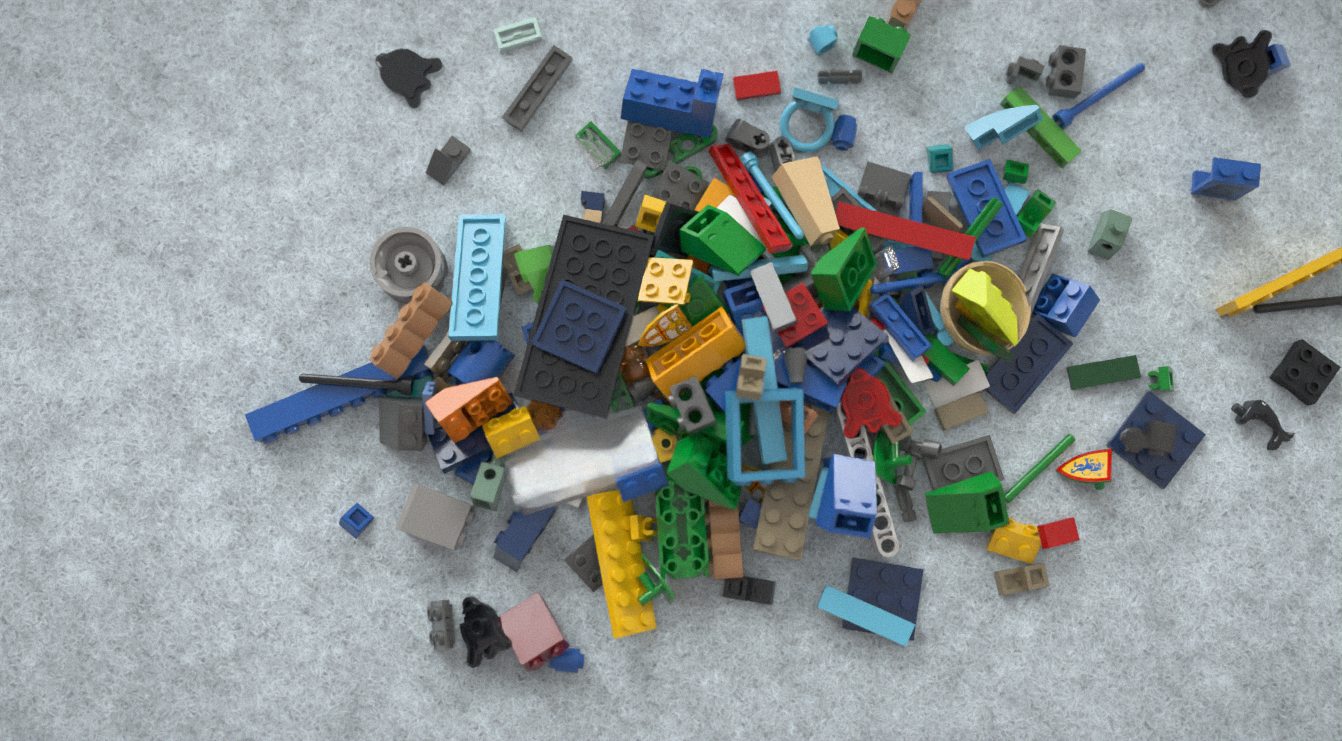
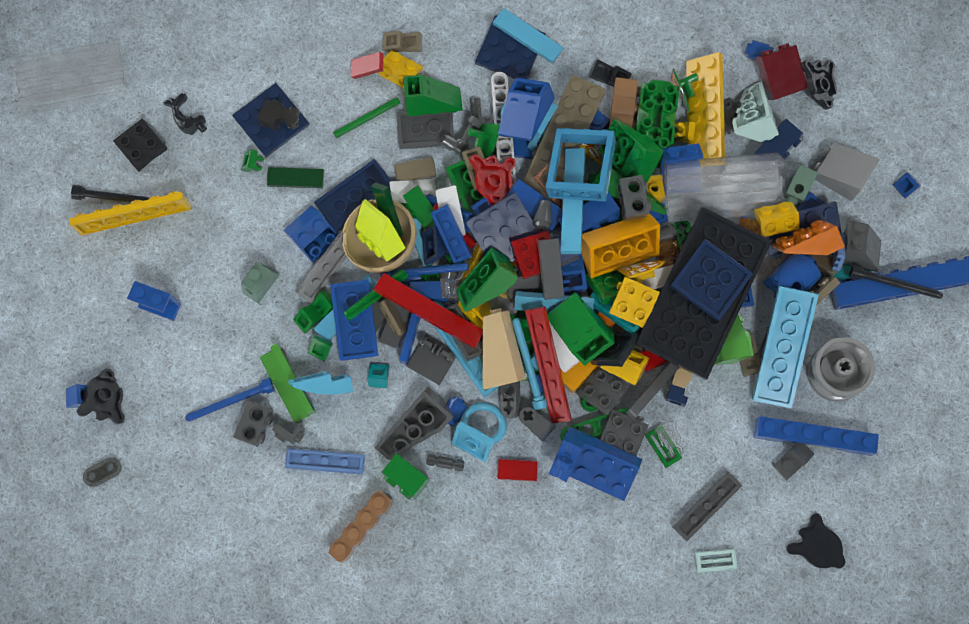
camera: 160 degrees left, 5 degrees down
(397, 188) = (817, 435): none -> blue arch
(410, 331) = (847, 309): medium nougat brick -> none
(440, 636) = (850, 90): dark grey hinge -> none
(557, 556) = (755, 115): none -> light aqua wedge
(751, 377) = (585, 202): dark tan slope -> none
(823, 39) = (452, 497): medium azure plate -> none
(880, 112) = (421, 420): none -> dark grey wedge
(973, 51) = (325, 461): none -> medium blue tile
(1089, 468) = (330, 106): shield -> none

